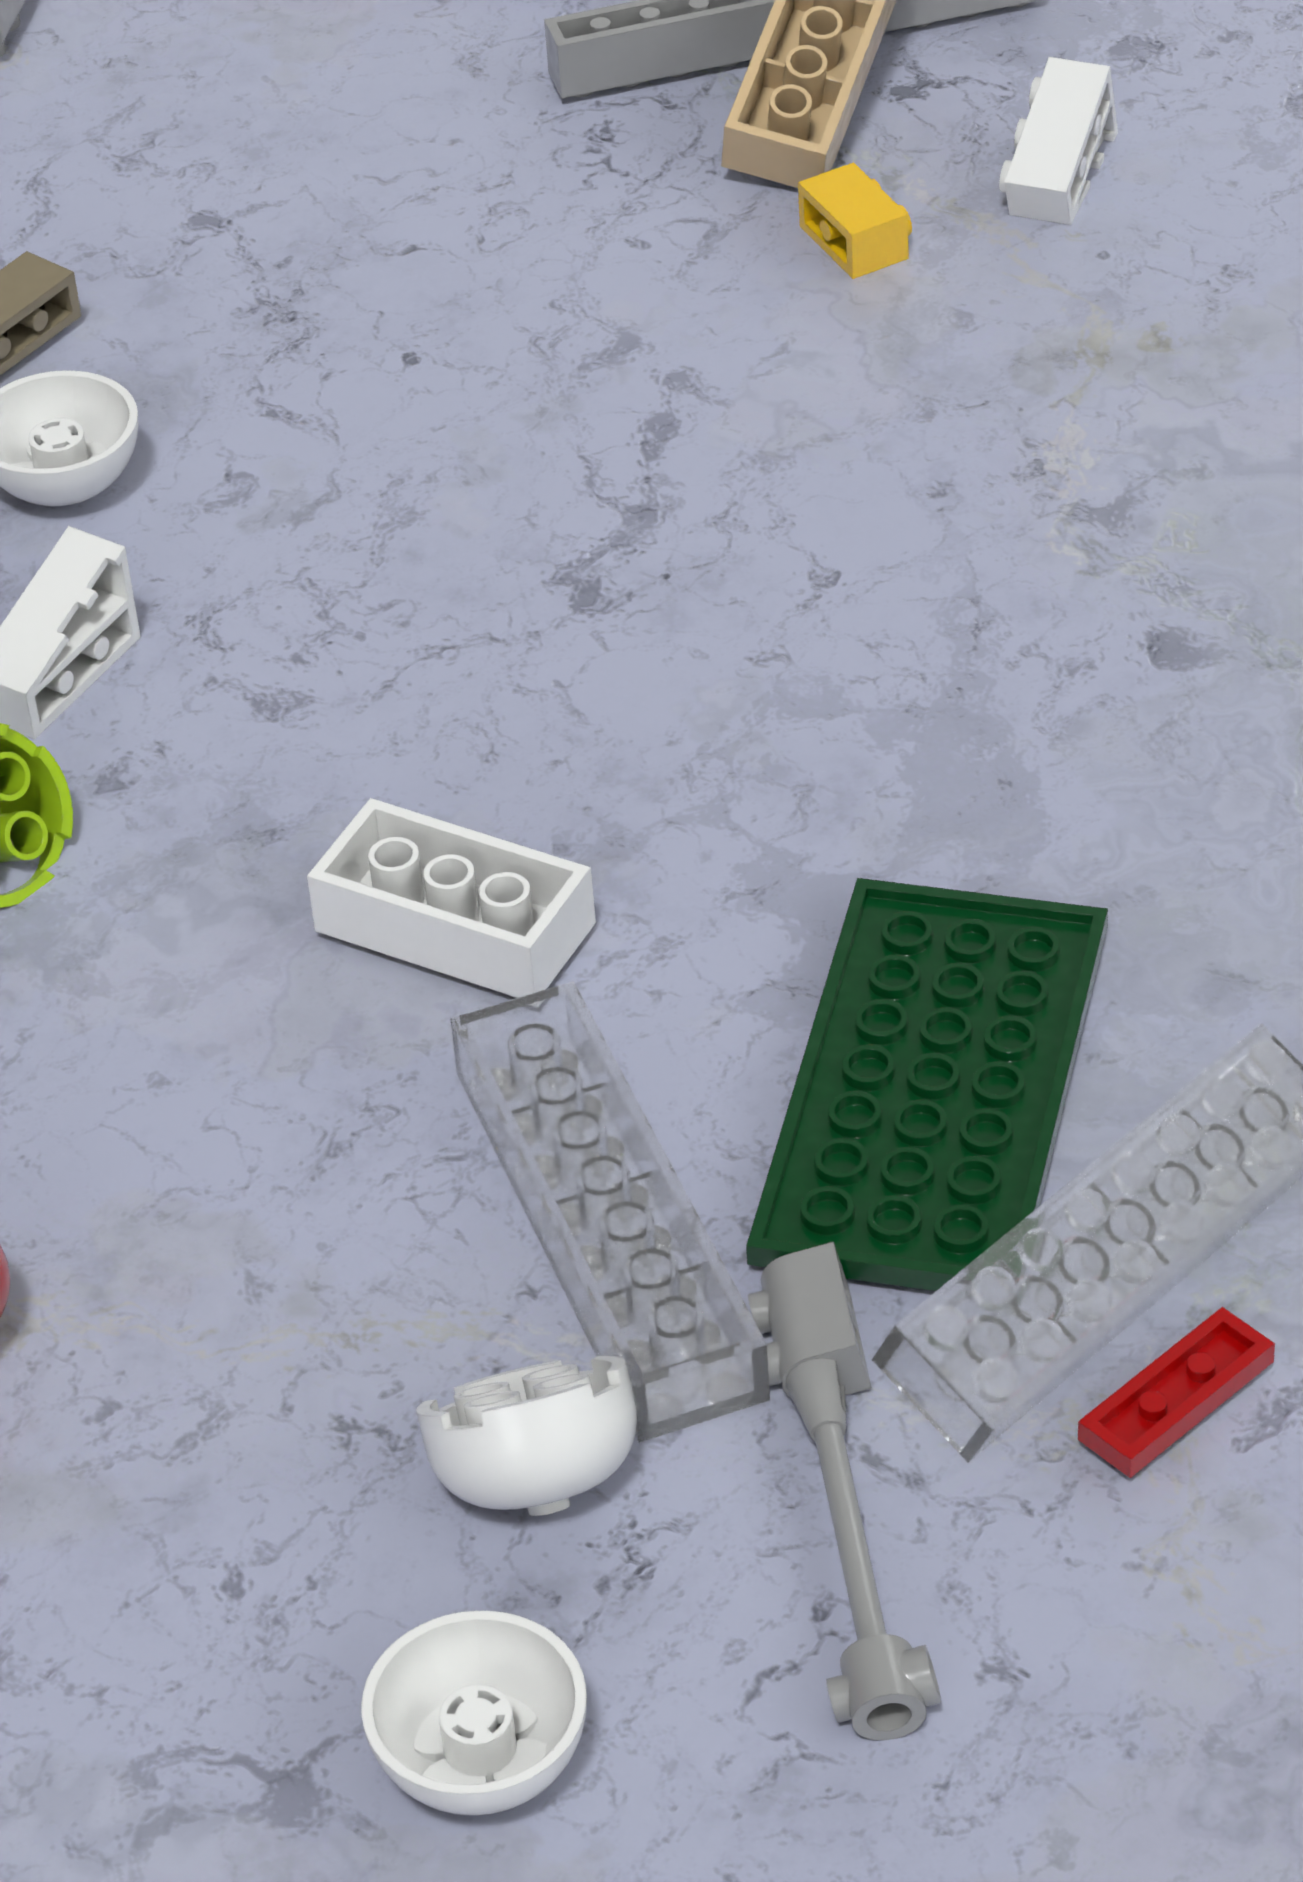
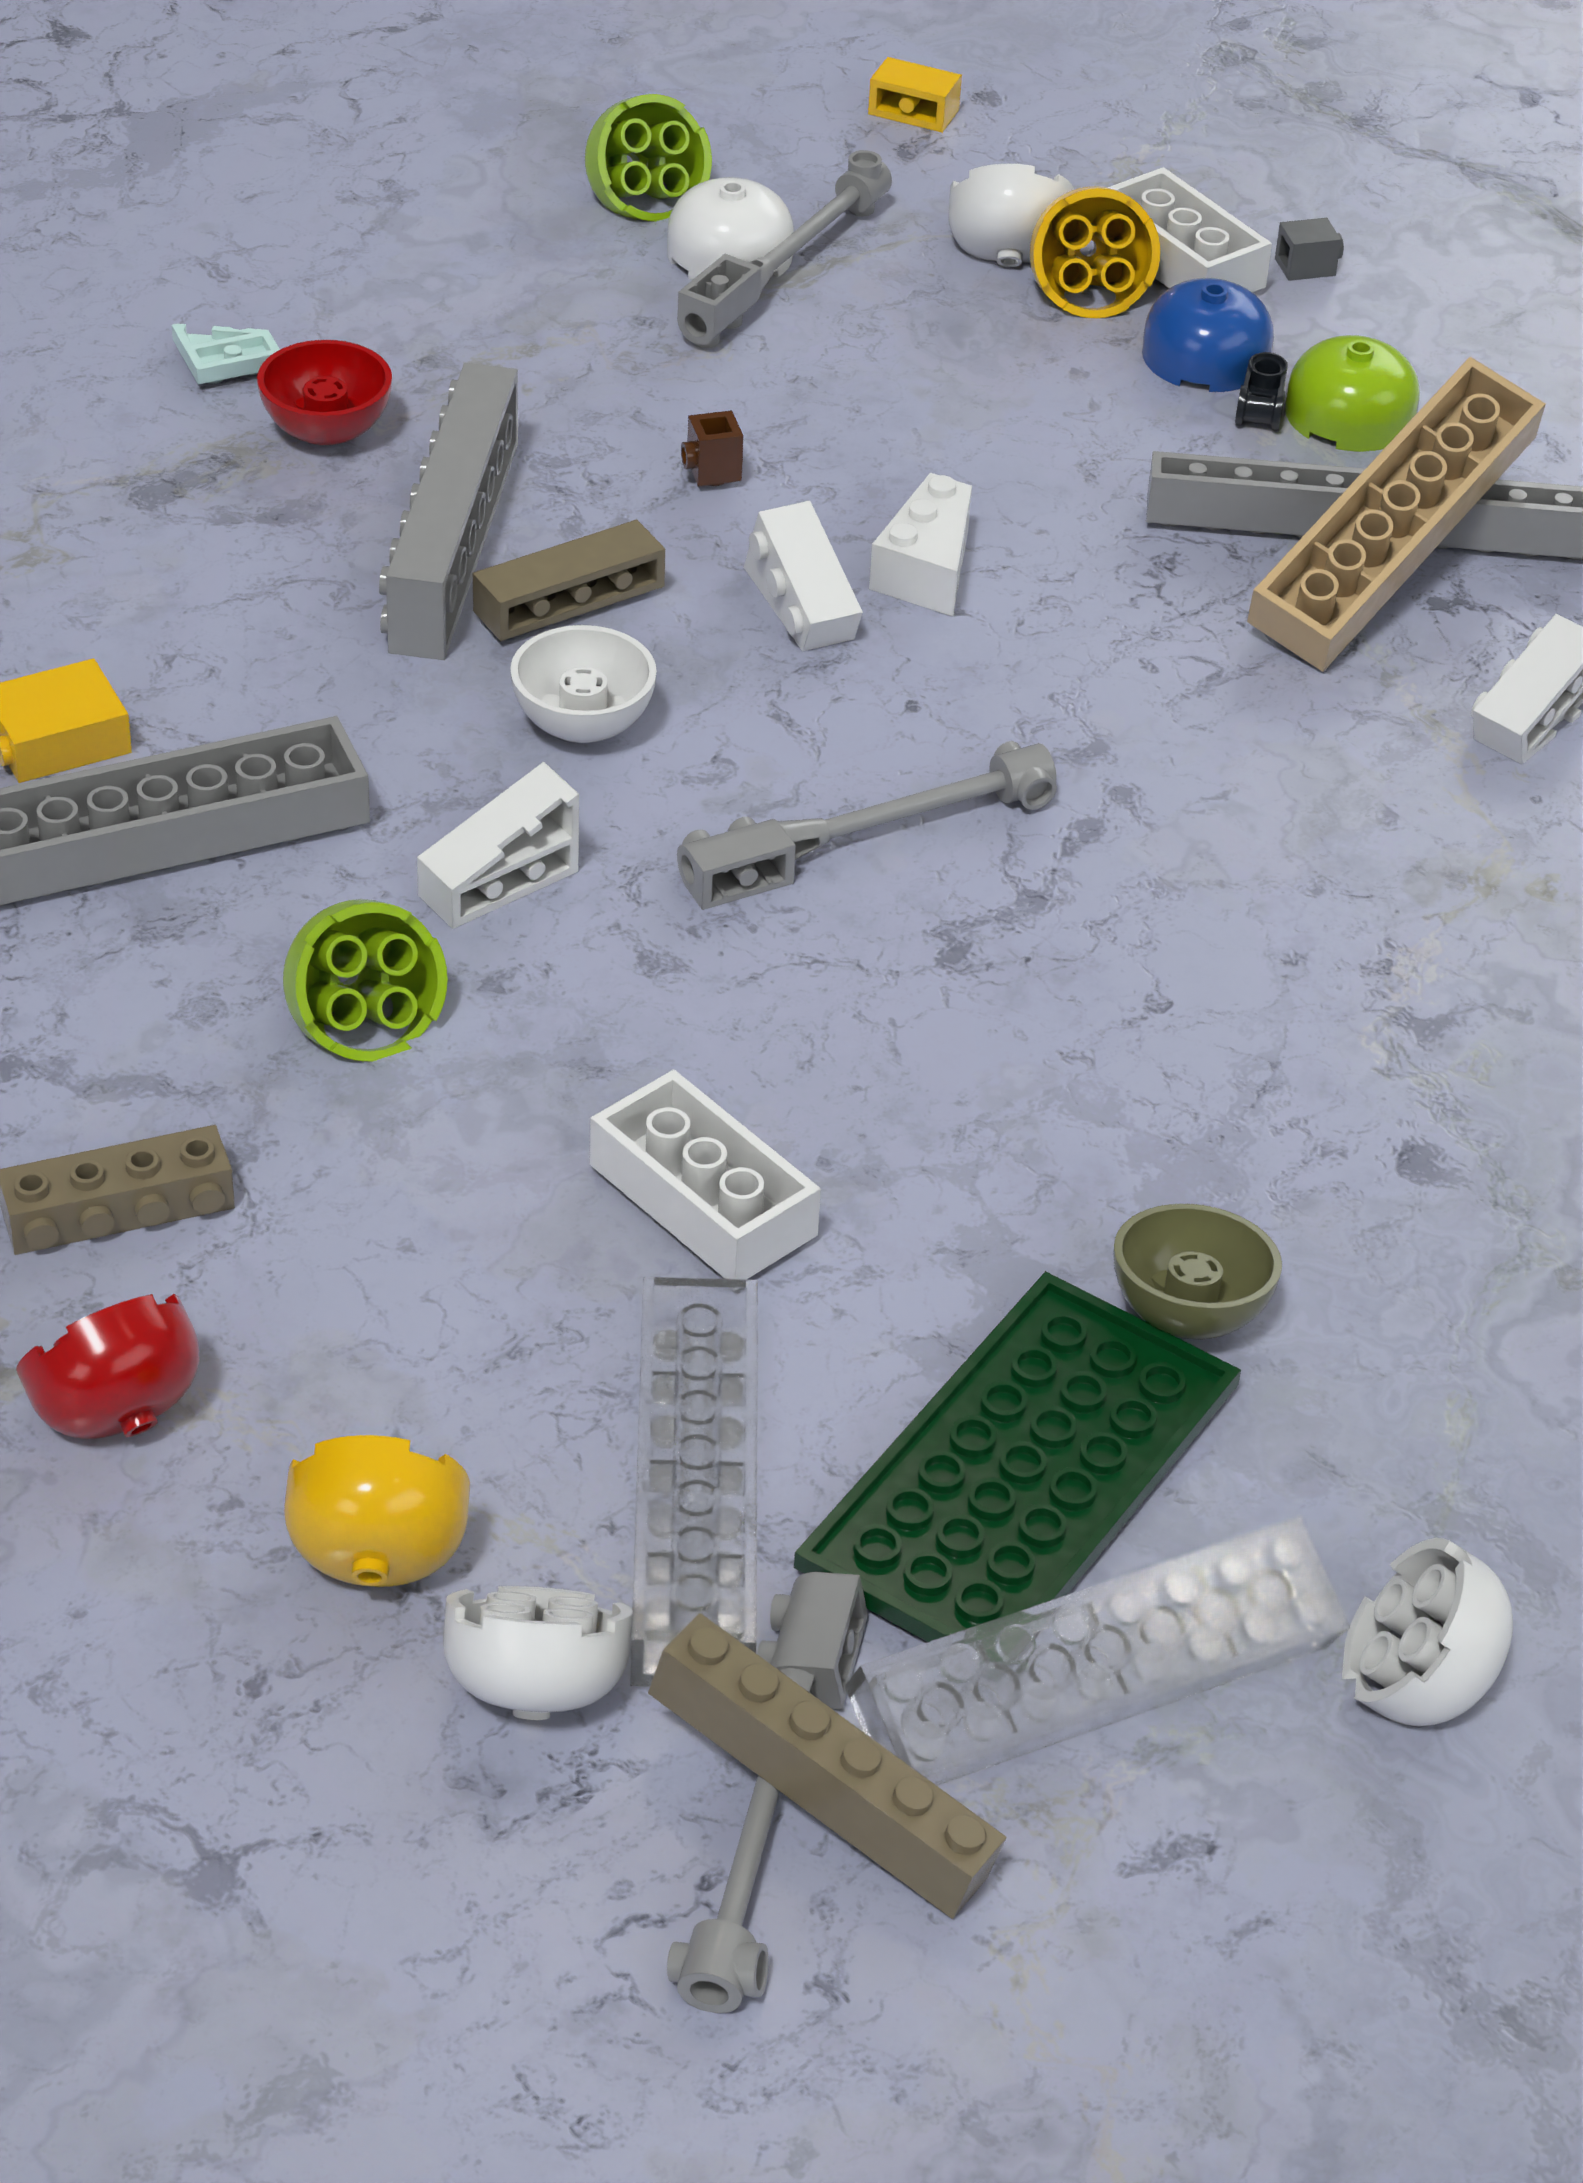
camera: 15 degrees right, 0 degrees up
(67, 155) = (713, 448): none -> reddish brown brick
(232, 259) = (802, 576): none -> white wedge
(289, 1352) = (376, 1510): none -> yellow cylinder
(339, 556) = (763, 854): none -> light grey bar
(347, 190) = (924, 546): none -> white wedge
(475, 1711) = (371, 1862): white piece -> none
(854, 220) = (1334, 703): yellow brick -> none
(898, 1442) = (826, 1765): none -> dark tan brick
(1017, 822) = (1195, 1269): none -> olive piece
(1176, 1392) = (1088, 1805): red plate -> none

